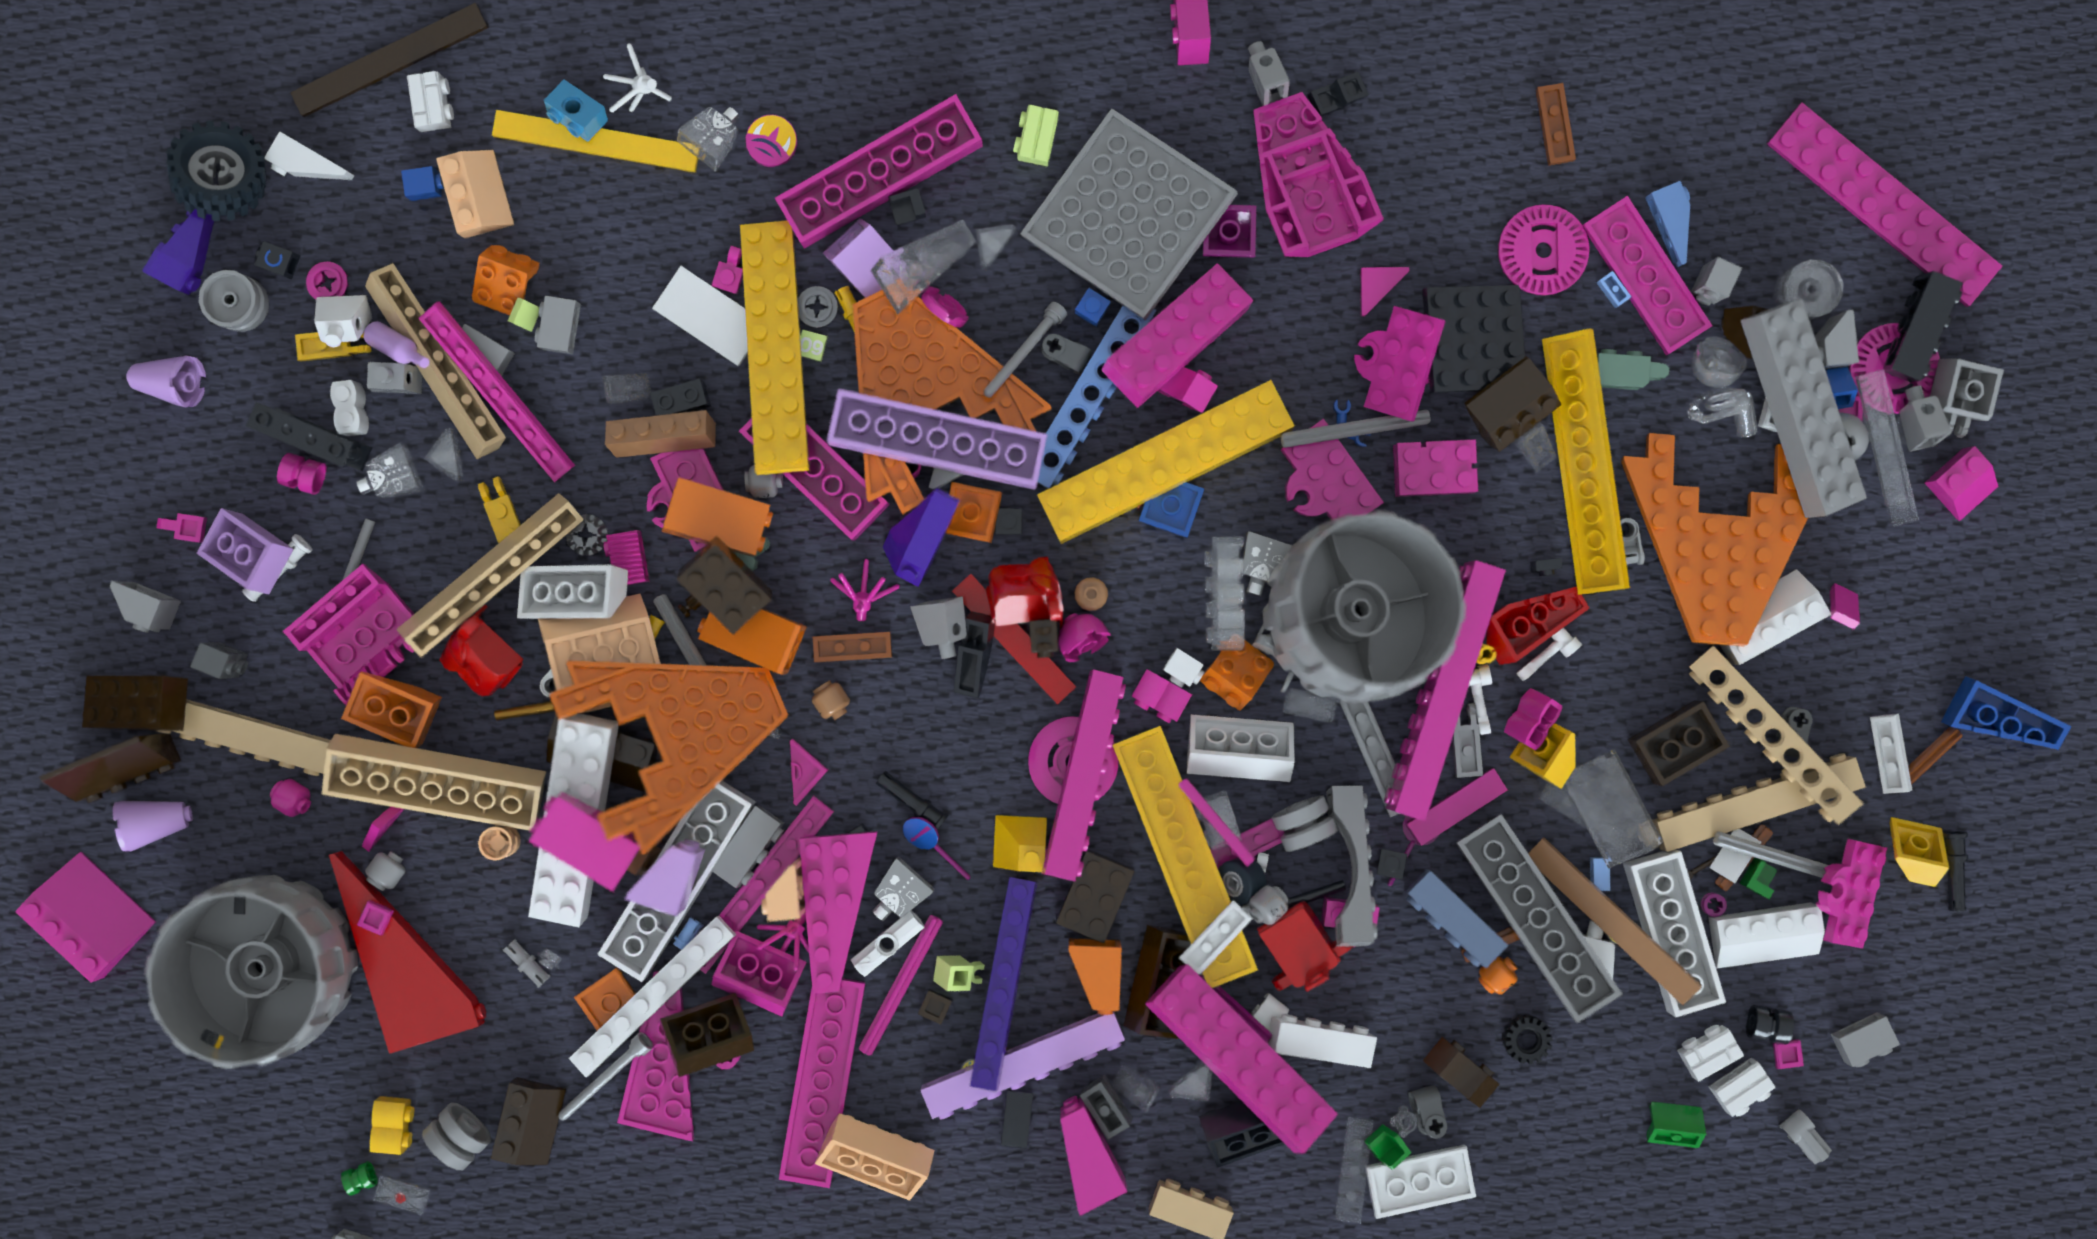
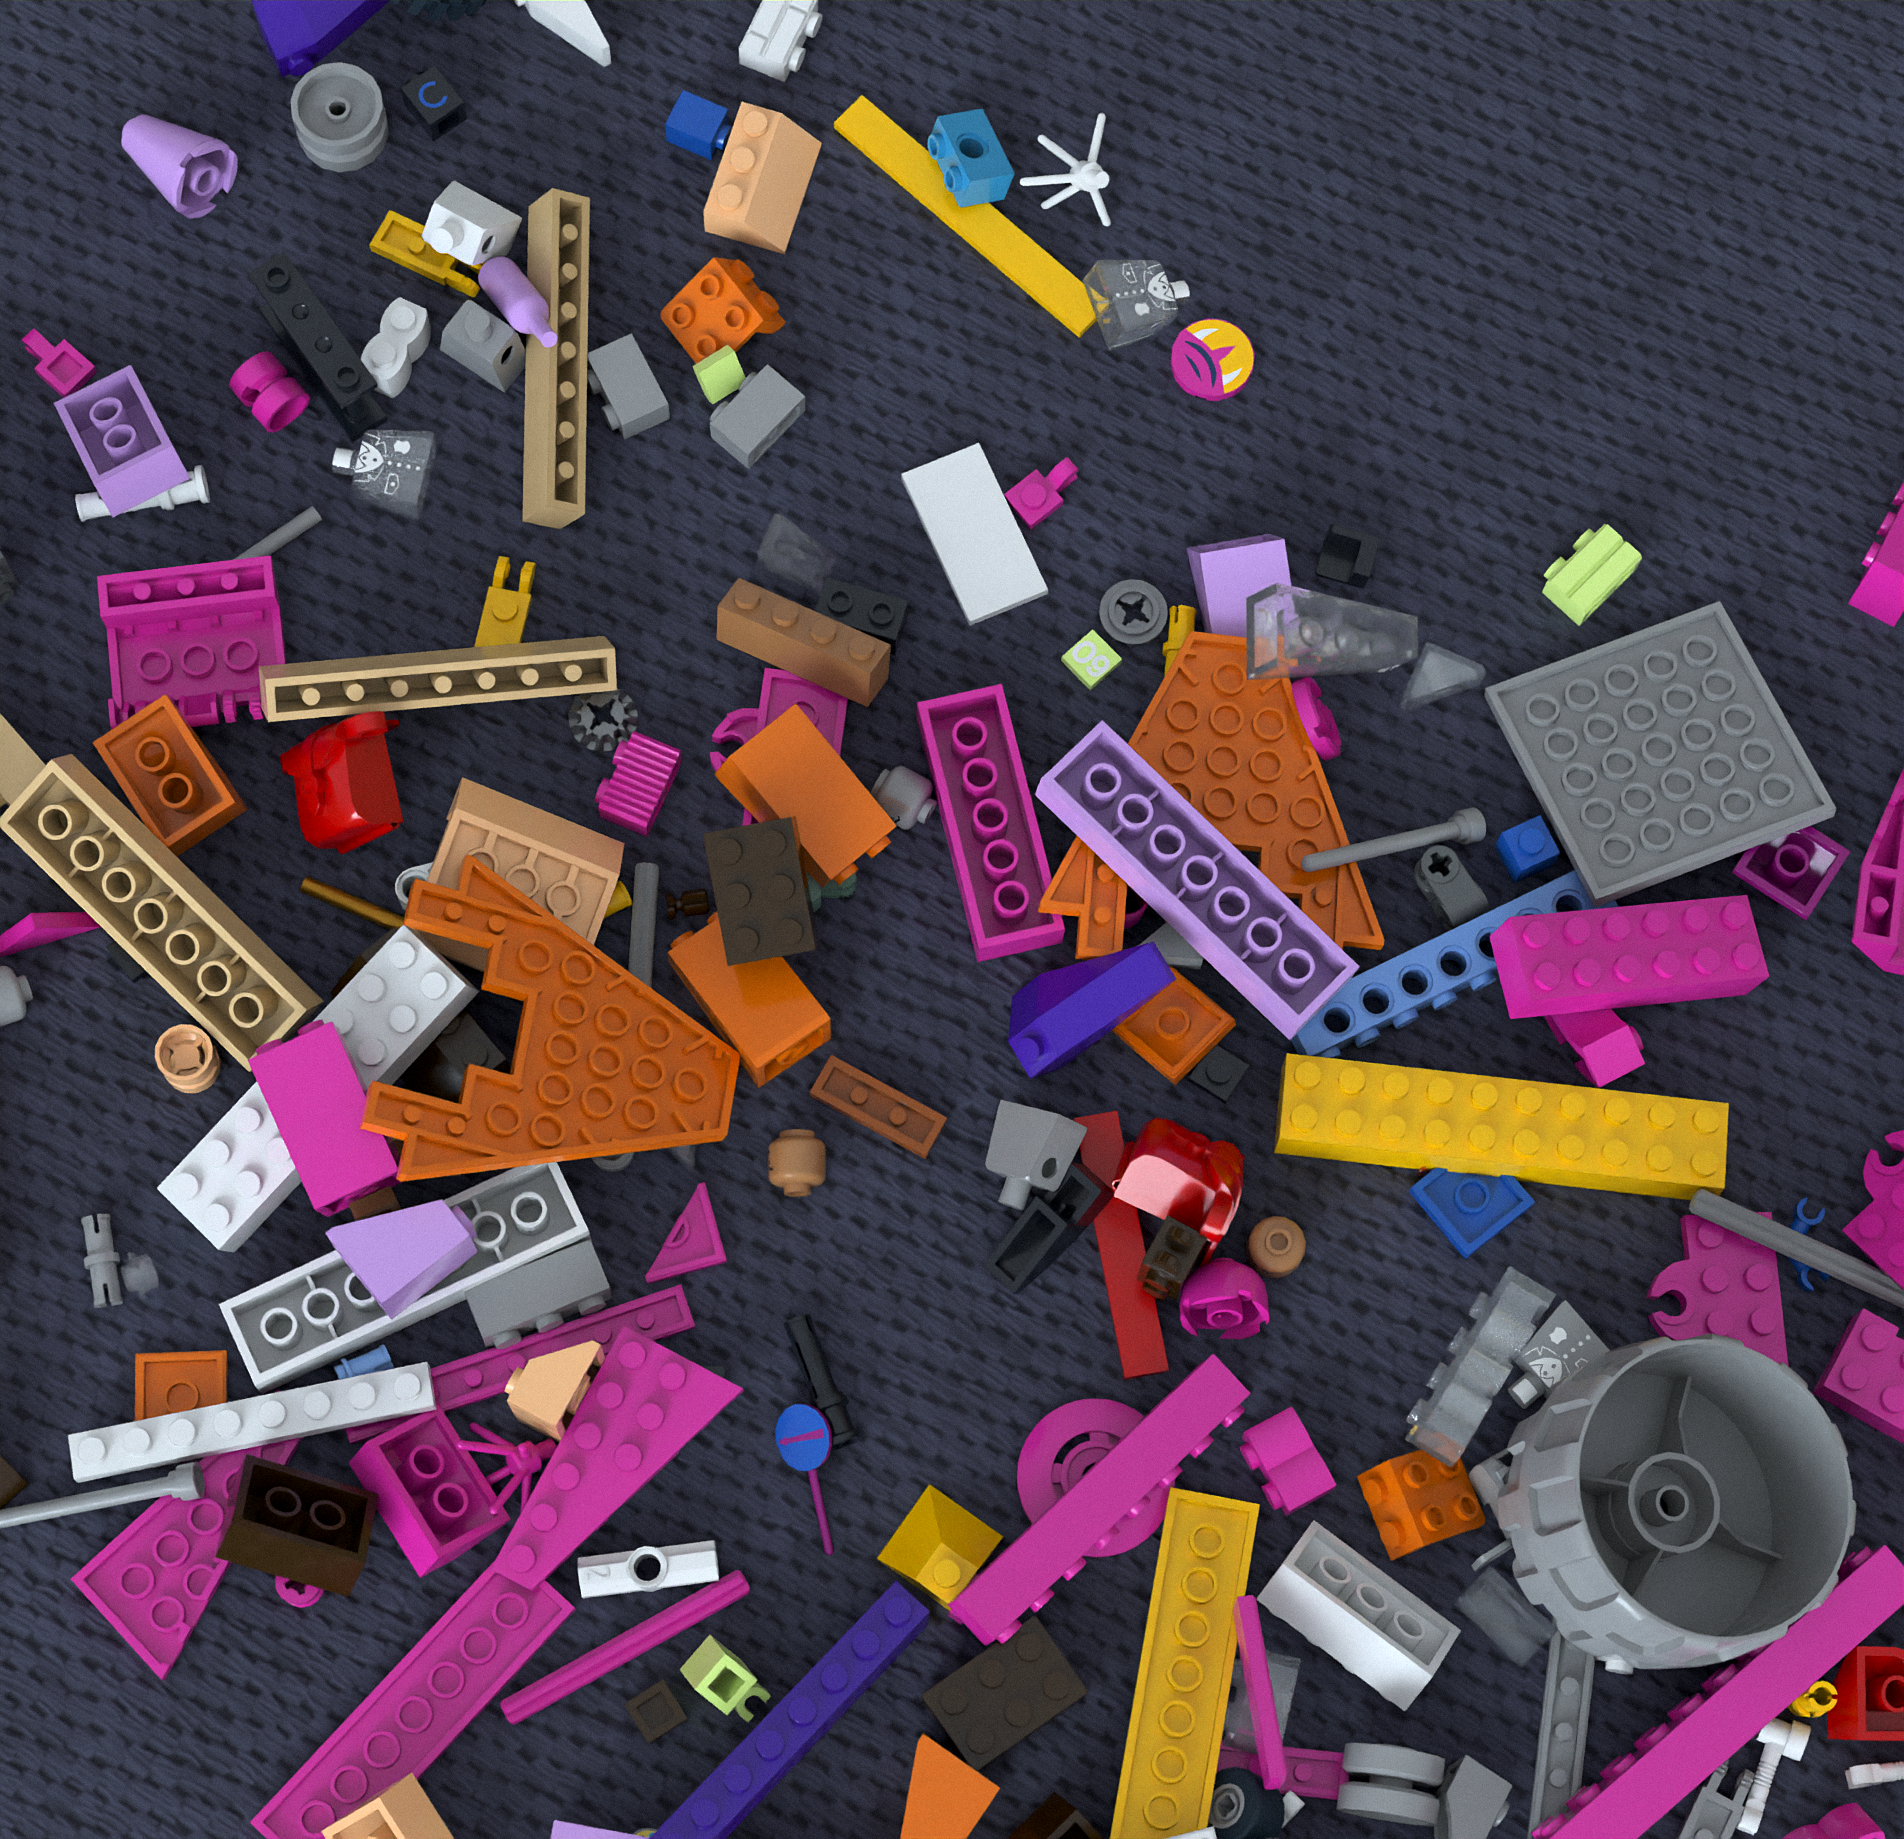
camera: 30 degrees right, 15 degrees down
(316, 278) = (468, 159): dark pink gear -> none
(447, 456) = (484, 489): clear slope -> none
(496, 391) = (614, 449): dark pink tile -> none
(571, 591) = (537, 769): white slope -> none
(774, 348) = (1039, 626): yellow plate -> none
(862, 600) = (936, 1049): dark pink plant -> none
(879, 171) = (1344, 481): dark pink brick -> none
(900, 890) = (718, 1502): light grey torso -> none
(1183, 669) = (1346, 1441): white brick -> none

